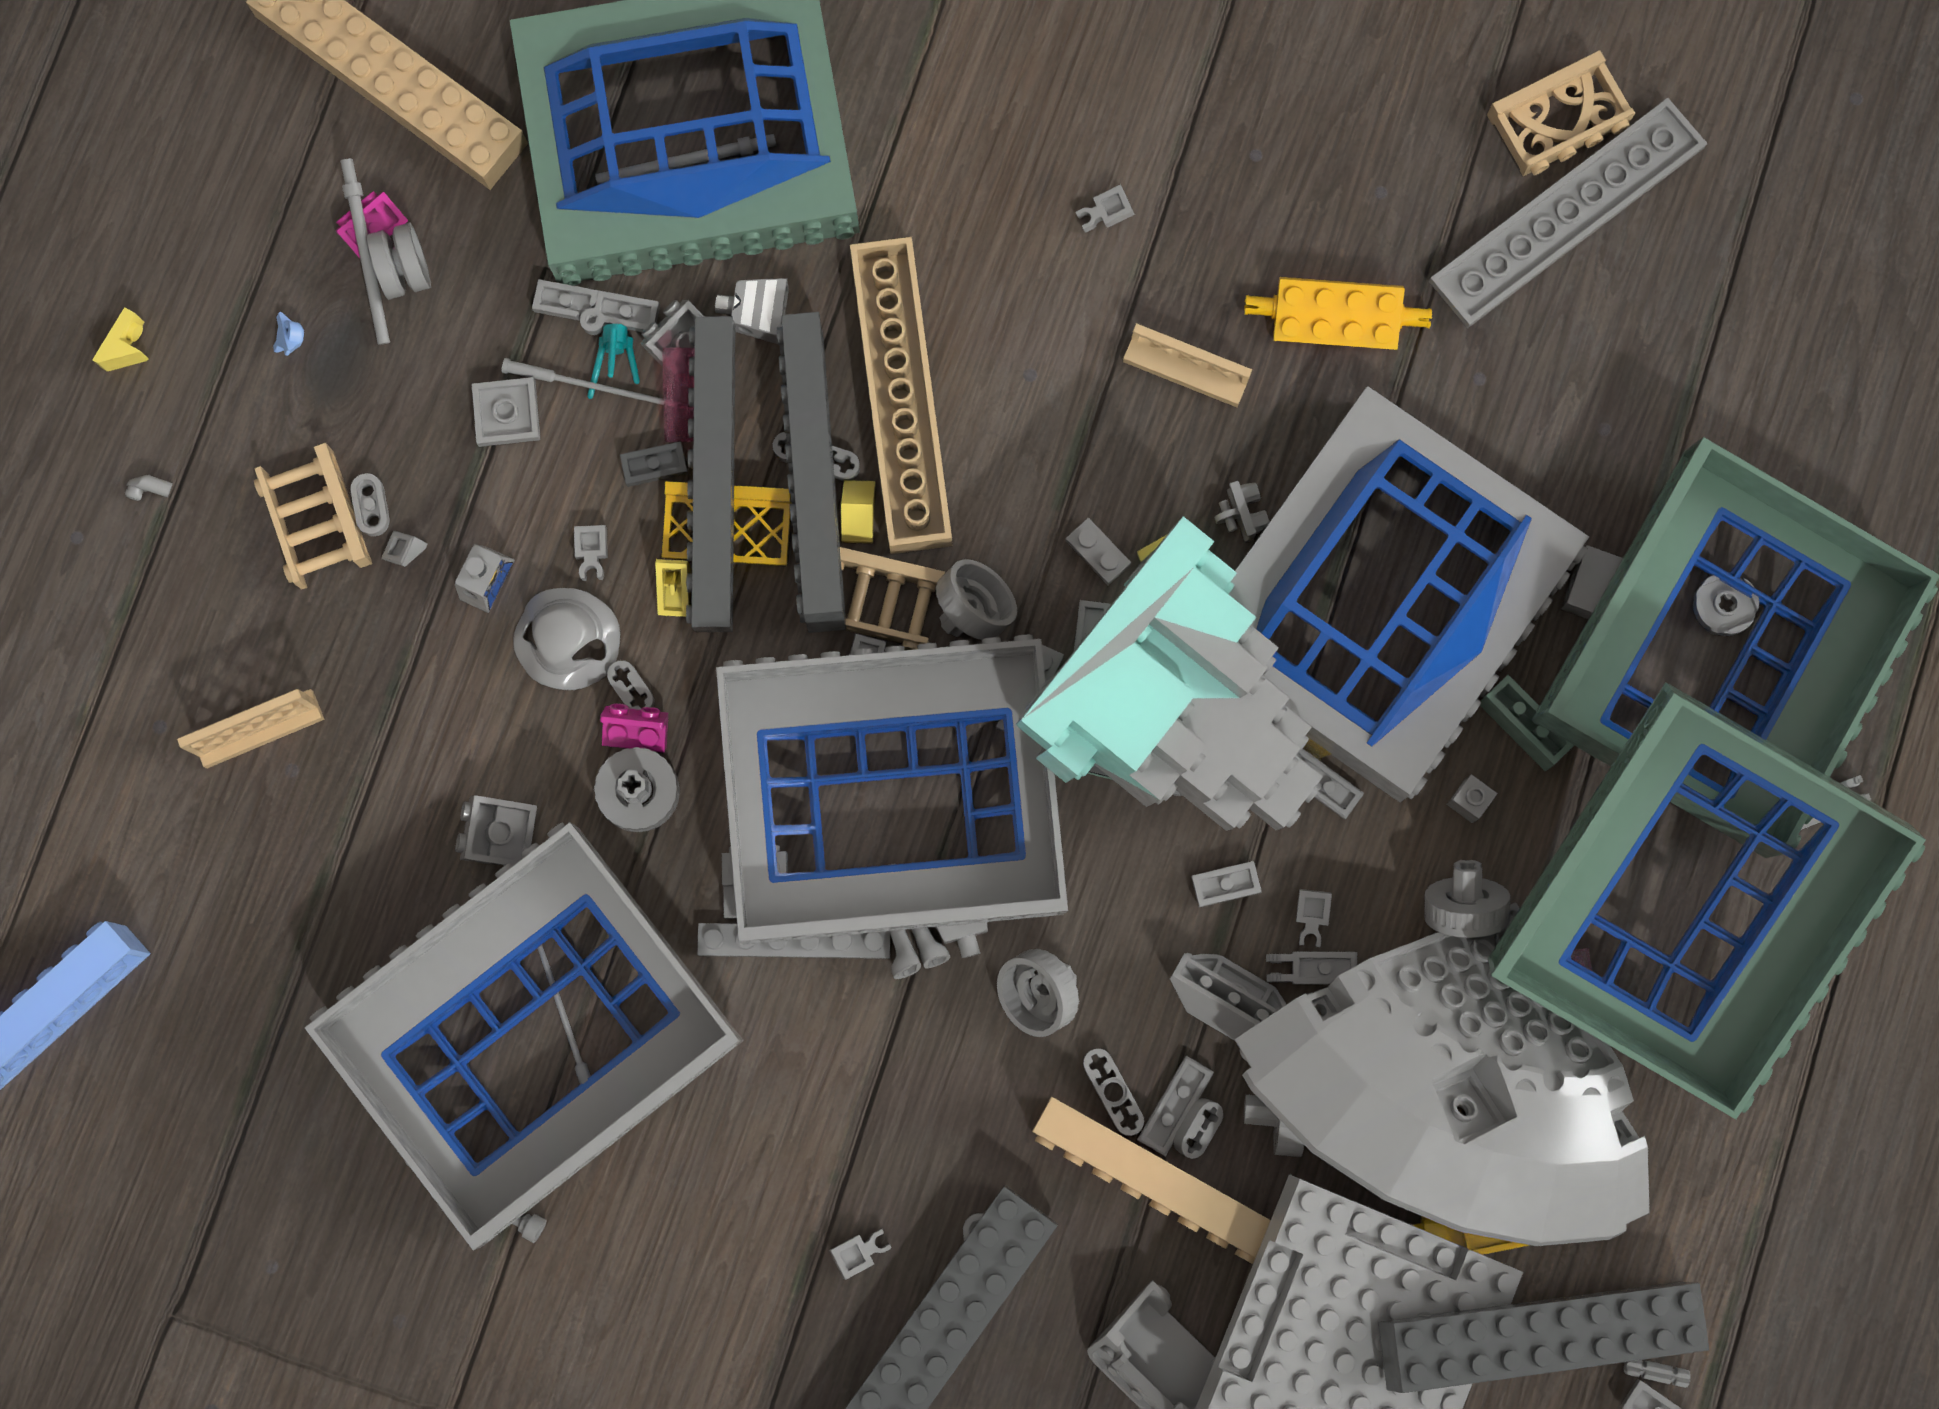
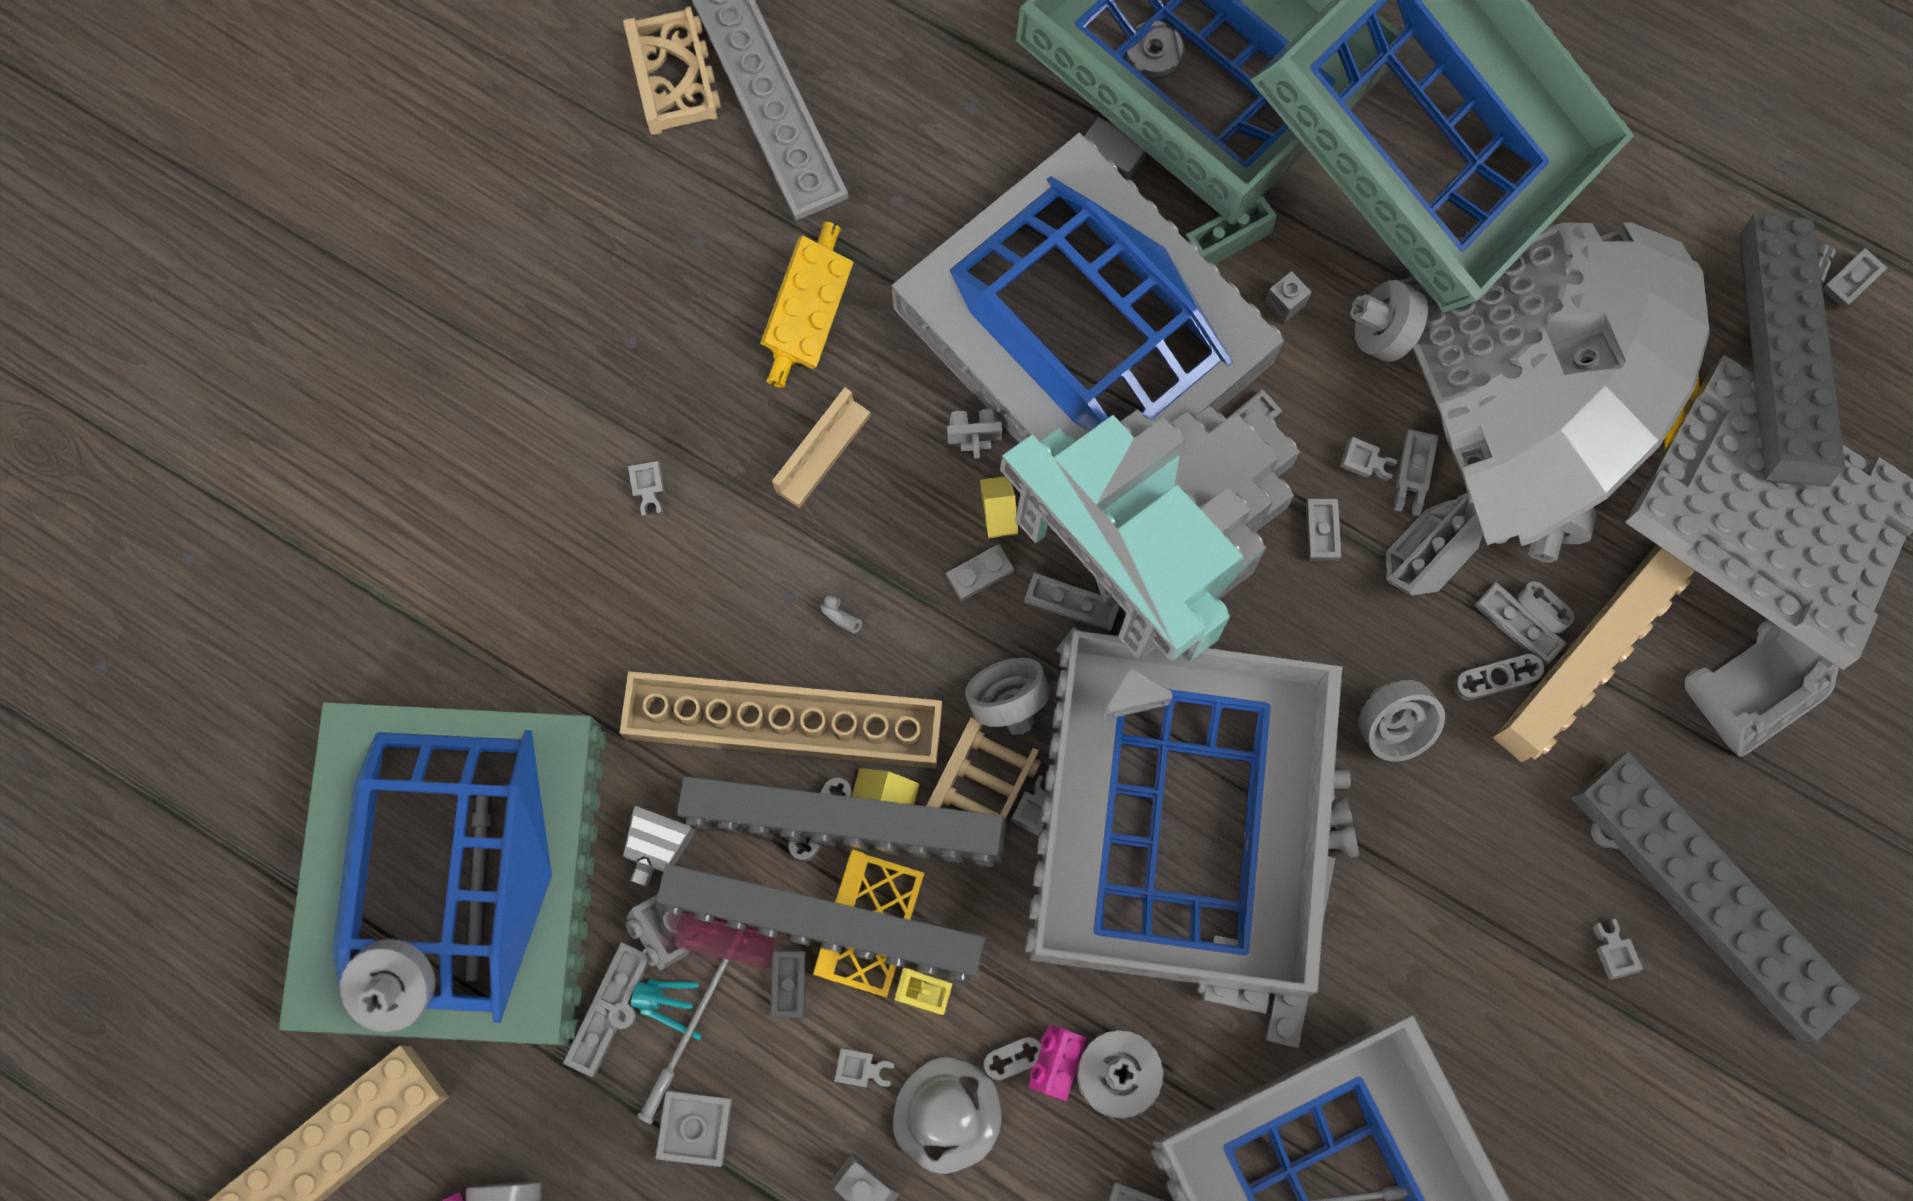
camera: 80 degrees left, 5 degrees down
(550, 94) = (379, 1000): none -> light grey piece
(985, 707) = (1137, 695): none -> light grey slope
(1019, 425) = (839, 617): none -> light grey arm

